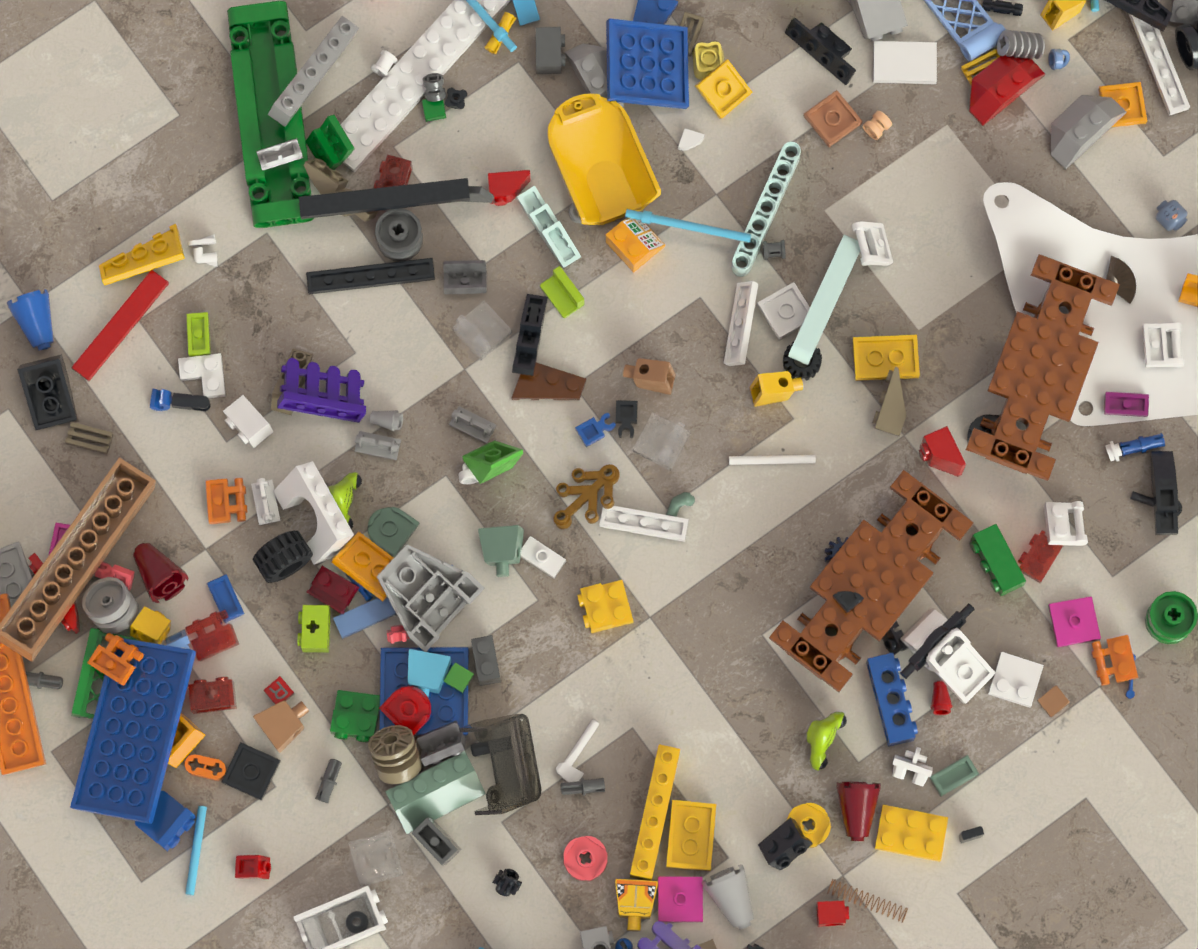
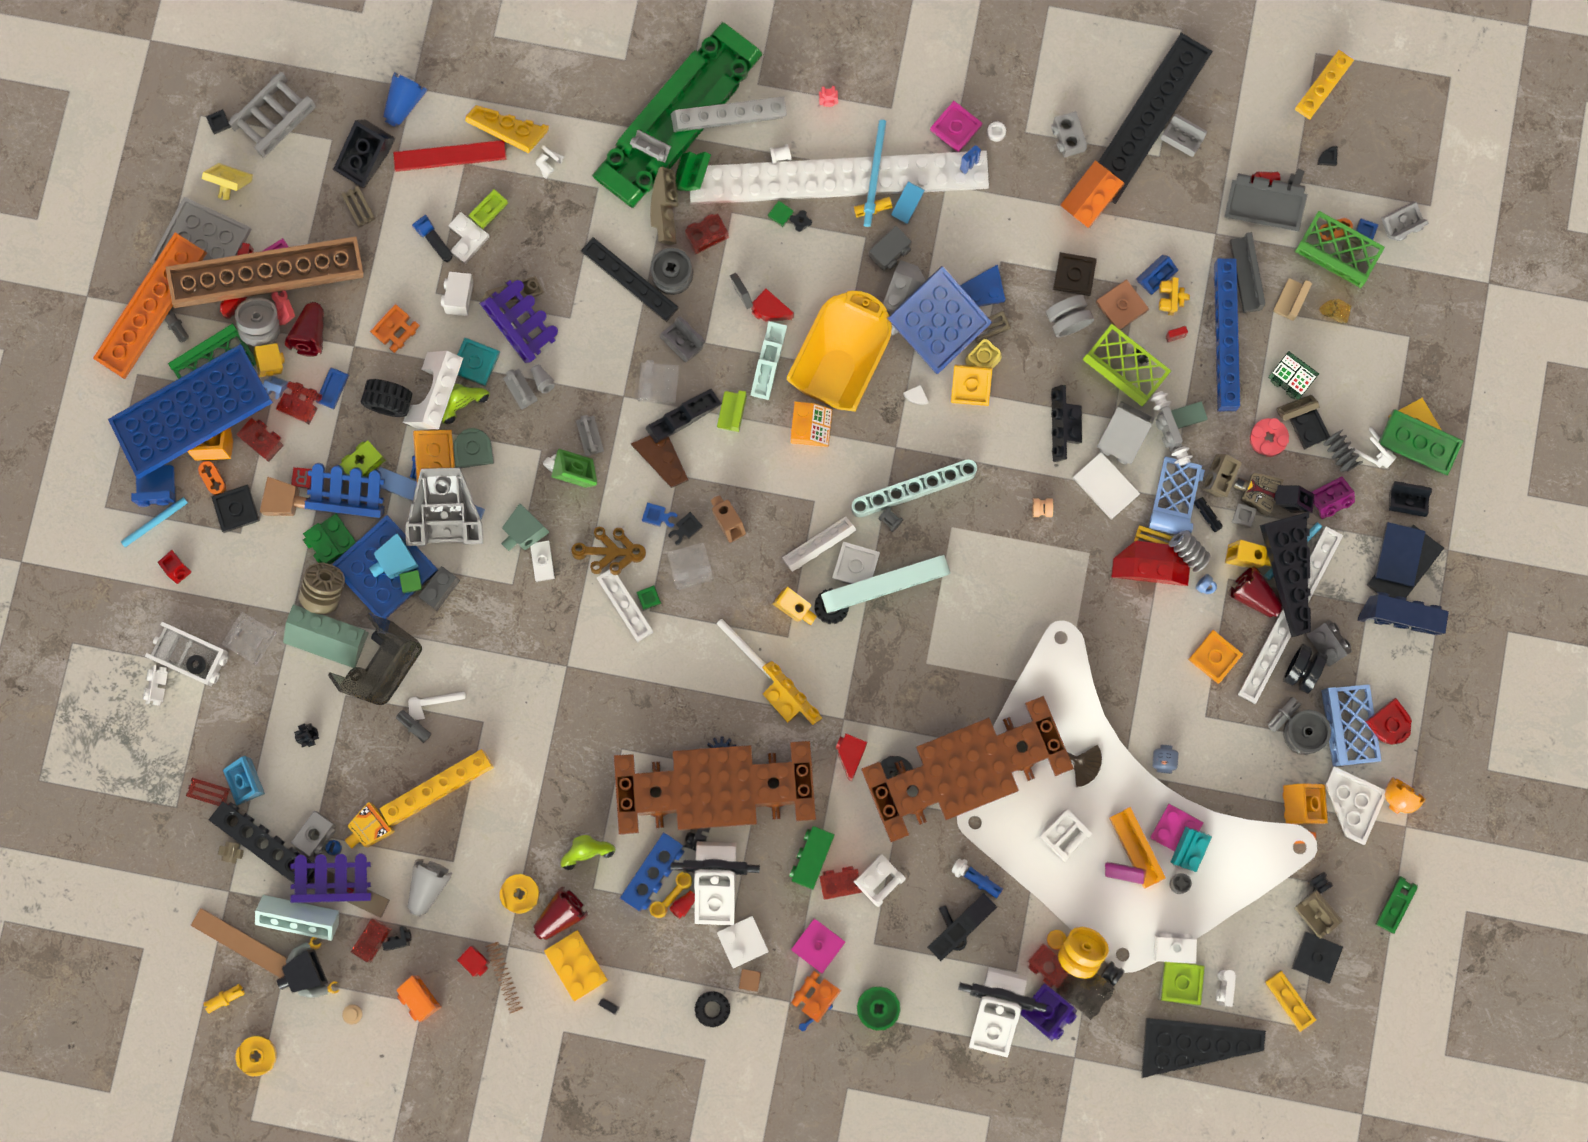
camera: 50 degrees right, 5 degrees up
(111, 664) = (218, 357): orange plate -> none
(265, 501) = (416, 355): white hinge -> none
(323, 454) = (477, 361): none -> teal plate
(328, 781) = (271, 562): dark grey axle -> none
(329, 682) = (335, 503): none -> blue fence
(332, 589) = (397, 449): dark red plate -> none
(384, 198) = (683, 239): black tile -> none
(397, 634) = (401, 516): coral plate -> none
(408, 708) = (359, 569): red tile -> none
(434, 88) = (793, 200): dark grey wheel -> none
(436, 841) = (291, 666): dark grey brick -> none
(441, 743) = (355, 610): flat silver bracket -> none
(580, 846) = (361, 779): coral plate -> none
(605, 606) = (546, 631): yellow plate -> none
(648, 217) = (833, 418): medium azure bar -> none
(655, 499) = (648, 597): none -> green tile
(678, 501) = (661, 614): sand green arm -> none
(680, 899) = (396, 855): dark pink plate -> none
(691, 835) = (444, 824): yellow plate -> none
(784, 844) = (490, 890): black bracket -> none
(832, 118) = (1020, 474): nougat plate -> none
(845, 464) = (786, 697): none -> yellow bracket
(848, 600) = (684, 784): black tile -> none
(877, 242) = (959, 581): white plate -> none
(879, 354) = (885, 659): yellow plate -> none
(893, 410) = (850, 697): dark tan slope -> none
(921, 770) = (622, 926): white hips -> none
(922, 681) = (659, 909): none -> yellow bar
(954, 775) = (640, 959): sand green tile -> none
(1043, 764) = (700, 1009): none -> black tyre
(1082, 126) = (1172, 643): light grey wedge -> none
(1101, 27) = (1256, 593): none -> dark red cone
(1126, 404) = (1002, 847): magenta plate -> none

